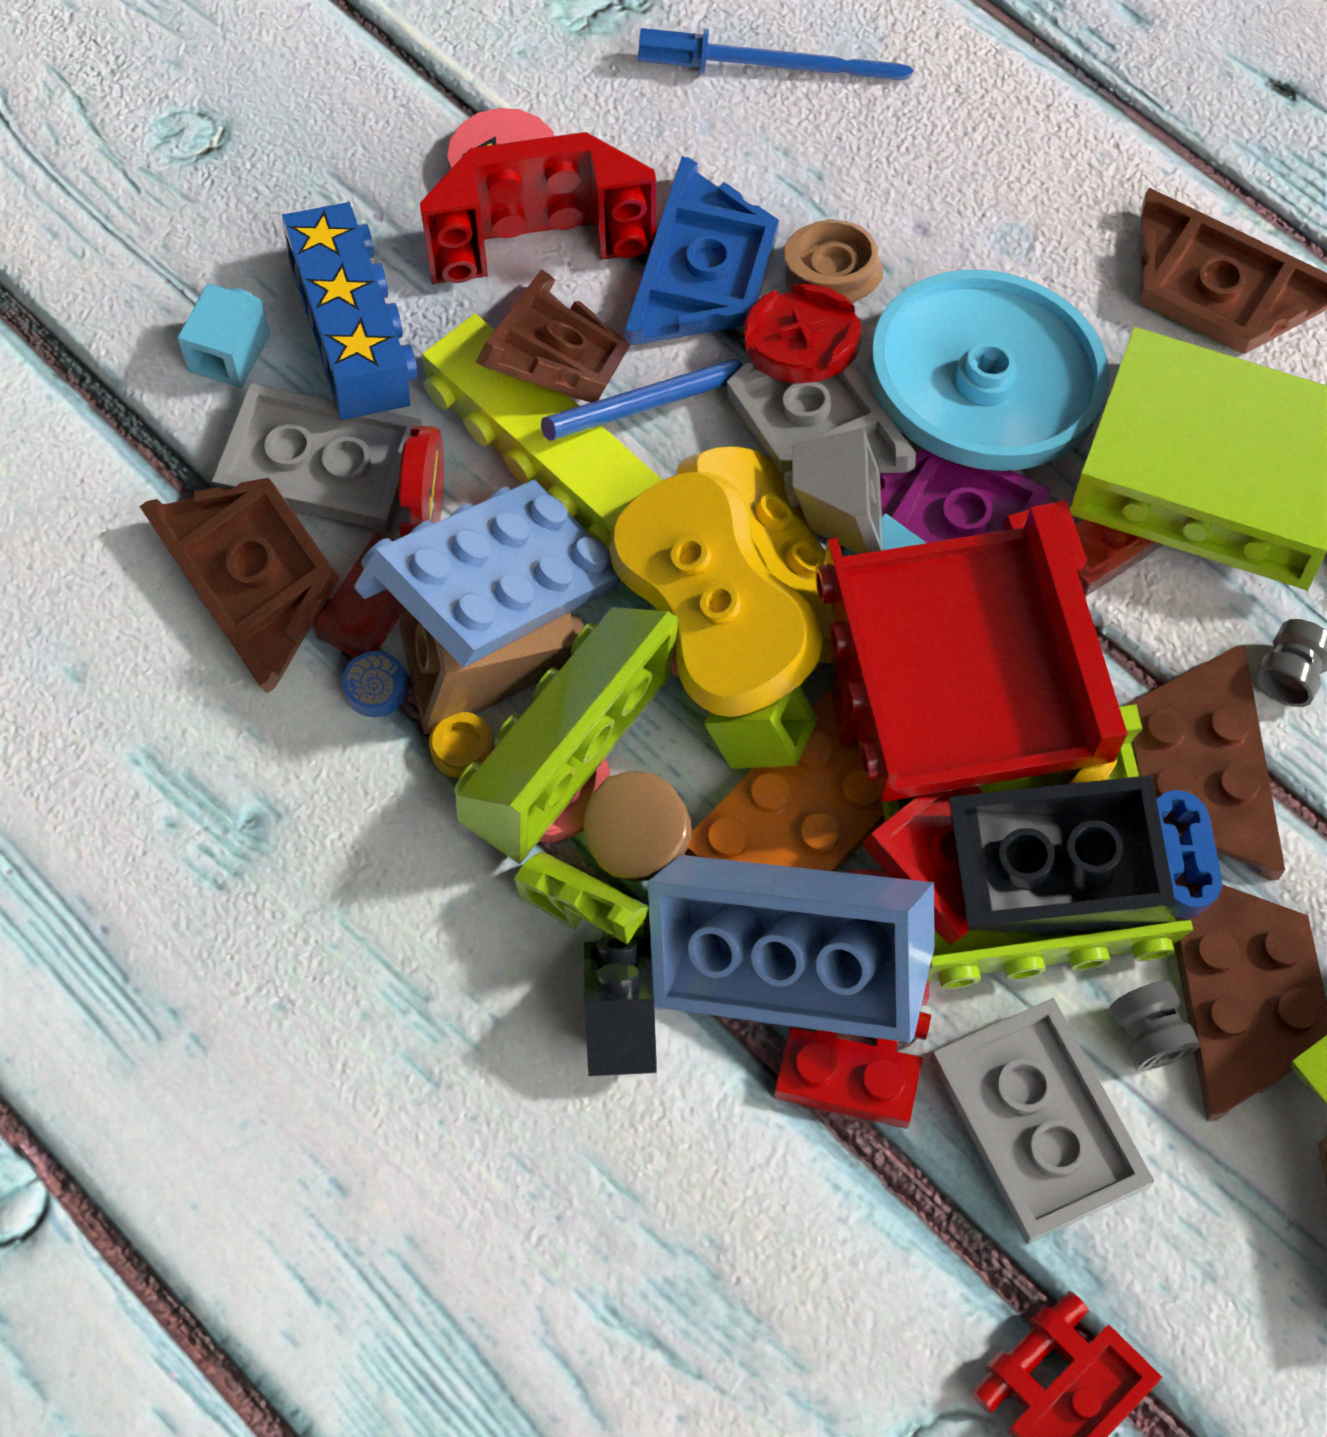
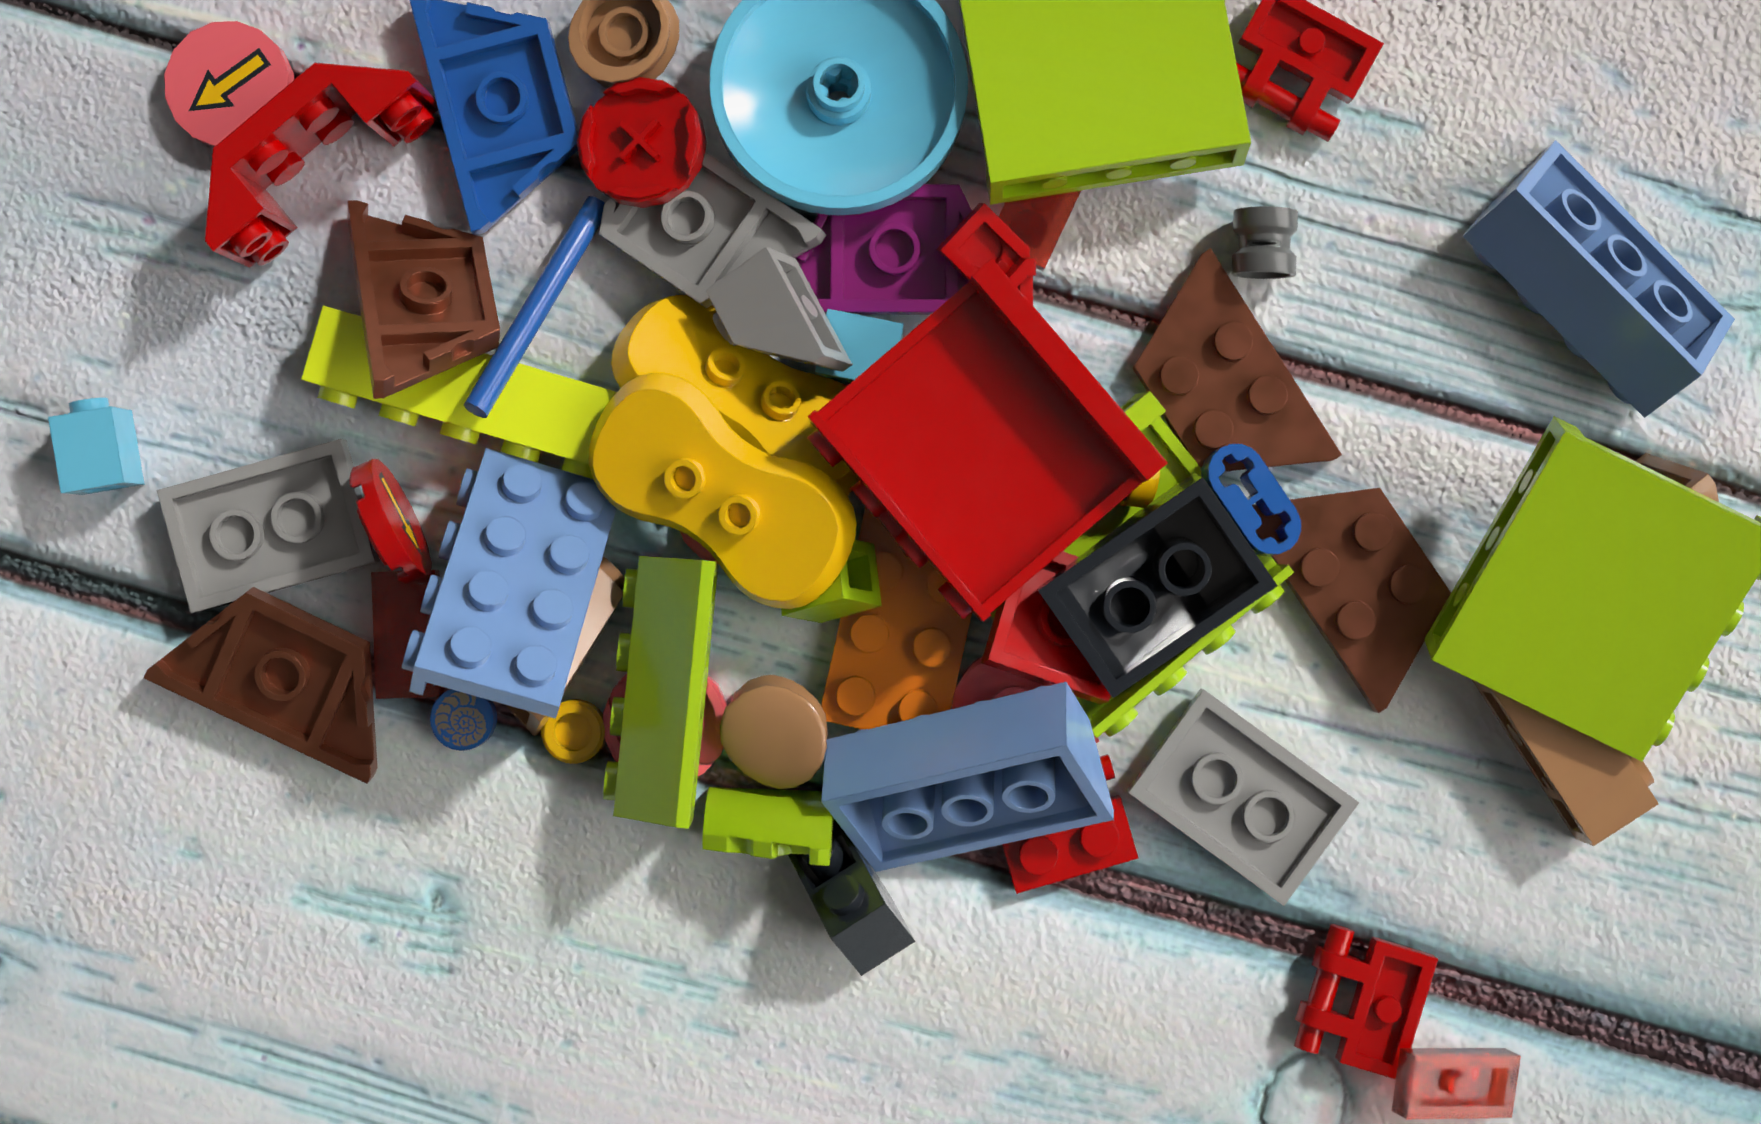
camera: 25 degrees left, 25 degrees up
(348, 310) = (195, 365): blue brick -> none
(1154, 1025) = (1298, 665): dark grey wheel -> none

